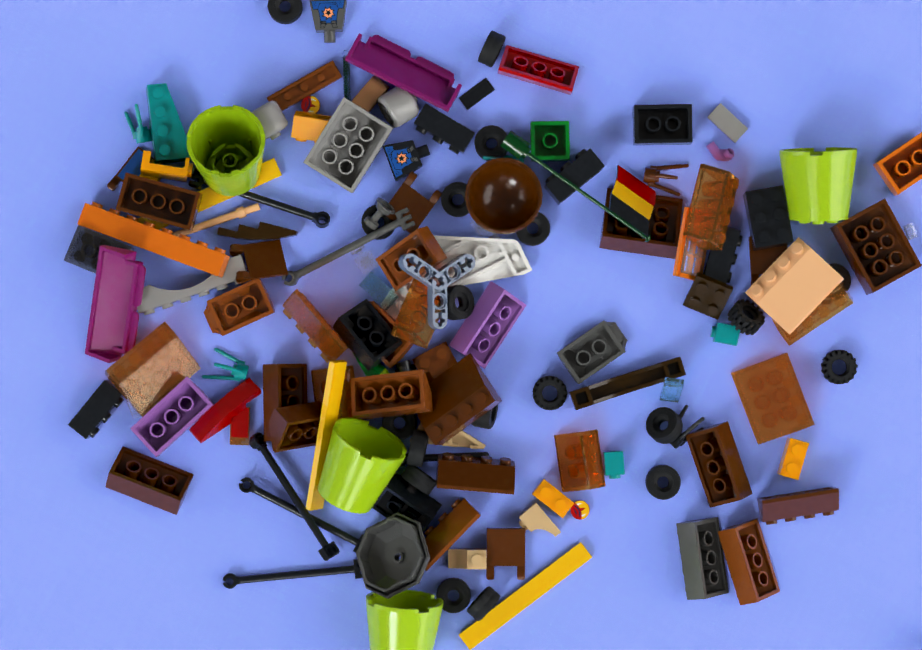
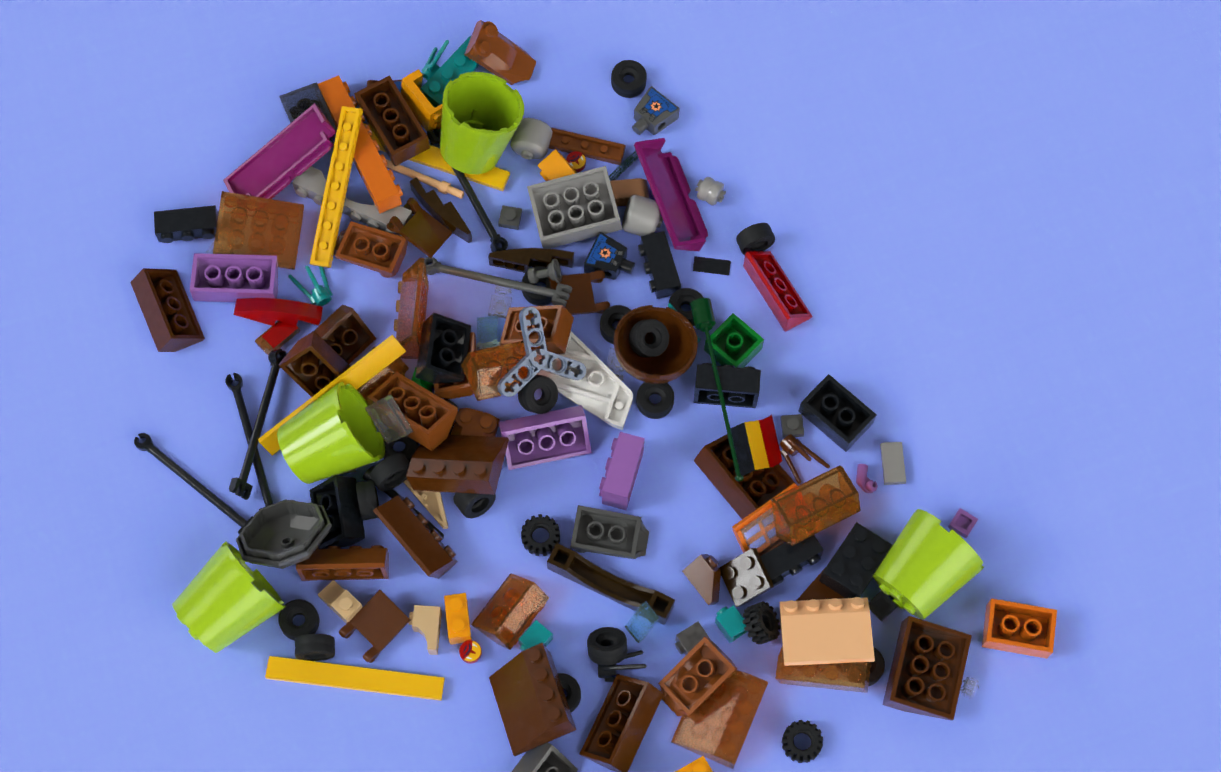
camera: 45 degrees right, 20 degrees down
(173, 287) = (336, 187): none -> yellow tile
(180, 77) = (499, 54): none -> dark orange slope
(307, 190) = (510, 217): none -> dark grey plate
(348, 214) = (525, 258): none -> dark brown slope
(384, 418) = (389, 419): none -> clear tile
(425, 40) = (710, 191): none -> light grey piece
(503, 191) = (660, 338): none -> black tyre
(562, 301) = (621, 470): none -> medium lavender brick
(638, 159) = (792, 425): none -> dark grey plate
(652, 506) = (531, 700): none -> reddish brown slope
(682, 321) = (705, 577): none -> slope
(711, 369) = (689, 638): none -> flat silver brick
(740, 391) = (696, 677): none -> dark orange slope
(808, 232) = (882, 606): none -> black plate
(809, 122) = (963, 523): none -> medium lavender plate

